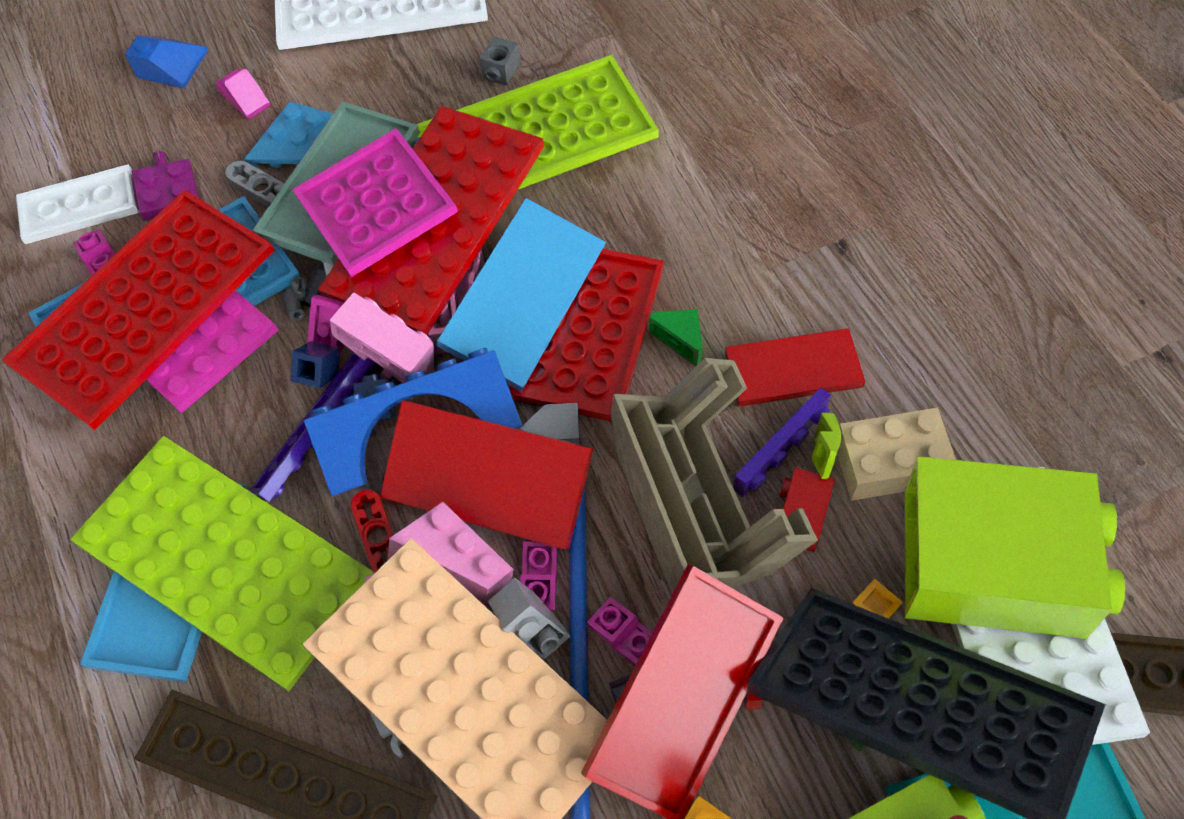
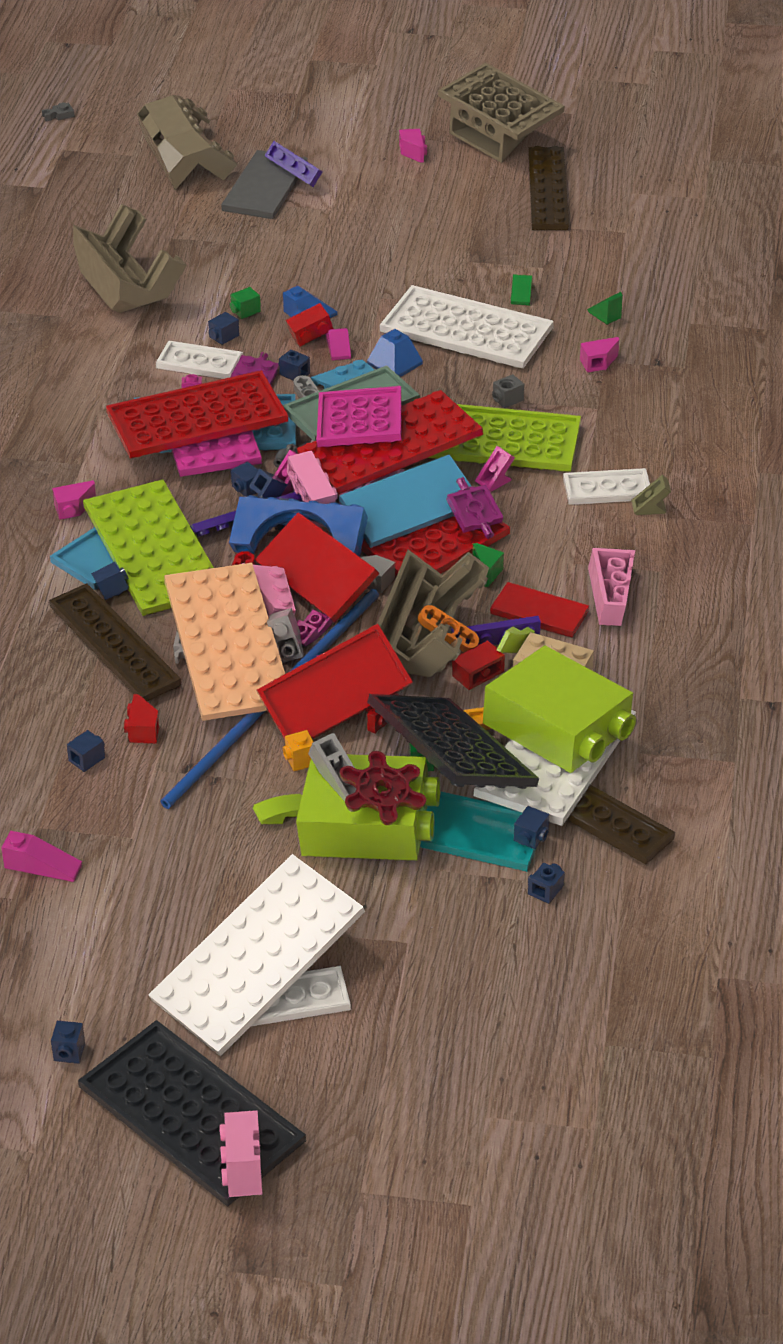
camera: 30 degrees right, 20 degrees down
(47, 539) = (69, 498): none -> dark pink slope
(78, 140) = (223, 328): none -> dark blue brick
(82, 90) = (245, 302): none -> green brick
(189, 83) = (309, 324): none -> red brick
(205, 665) = (111, 580): none -> dark blue brick
(210, 152) = (294, 364): none -> dark blue brick
(272, 367) = (242, 477): none -> dark blue brick
(325, 75) = (396, 352): none -> blue slope
(578, 183) = (495, 468): none -> dark pink slope
(611, 260) = (474, 508): none -> magenta plate
(715, 137) = (604, 485): none -> white tile
(731, 491) = (437, 615): none -> orange beam
(786, 127) = (650, 499): none -> olive slope
(856, 285) = (610, 582): none -> bright pink wedge
(1121, 773) = (531, 827): none -> dark blue brick

